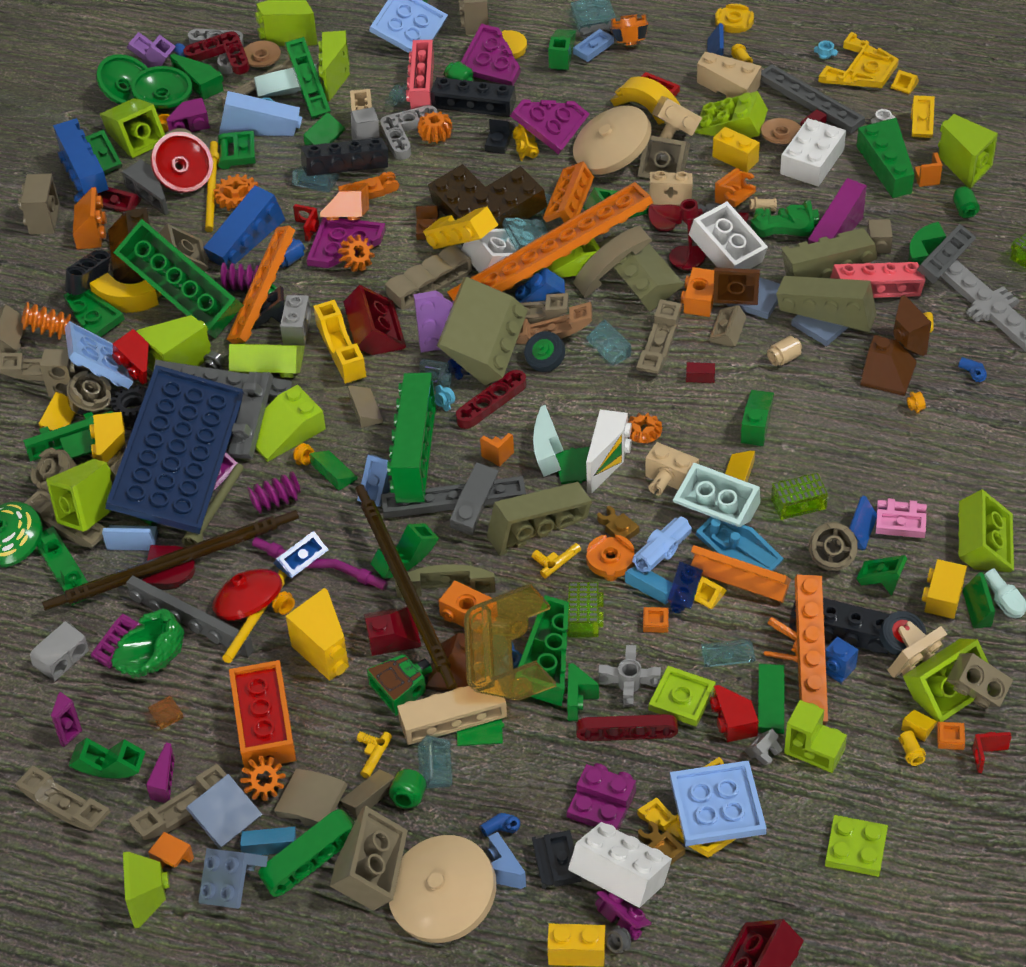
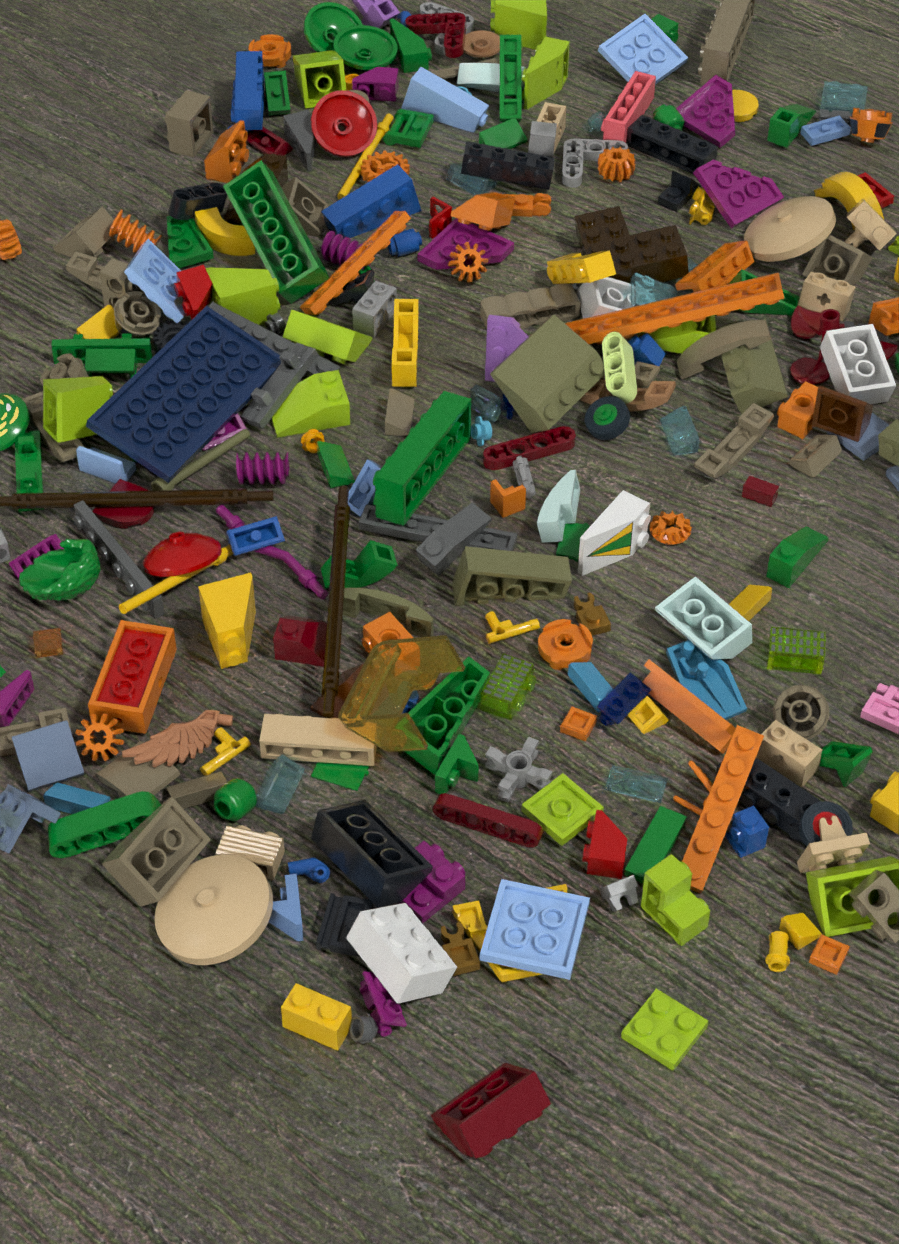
camera: 20 degrees right, 0 degrees up
(82, 111) = (279, 52): none -> orange plate
(108, 435) = (128, 359): yellow slope -> none
(283, 603) = (213, 574): light orange plate -> none
(332, 755) = (179, 740): none -> nougat animal
(373, 322) = (451, 335): dark red slope -> none
(399, 680) = (285, 691): torso -> none
(425, 217) = (559, 247): reddish brown slope -> none
(450, 821) = (260, 848): none -> tan brick
(499, 423) = (524, 476): none -> light grey axle
(529, 300) = (619, 367): none -> yellowish green beam
(548, 790) = (370, 852): none -> black slope
(662, 544) = (622, 649): light blue piece -> none
(667, 467) = (668, 572): tan brick -> none
(784, 351) = (861, 497): tan brick -> none
(841, 582) = (789, 753): none -> tan brick
(863, 522) = (849, 701): blue slope -> none
(989, 742) = (865, 976): red bracket -> none

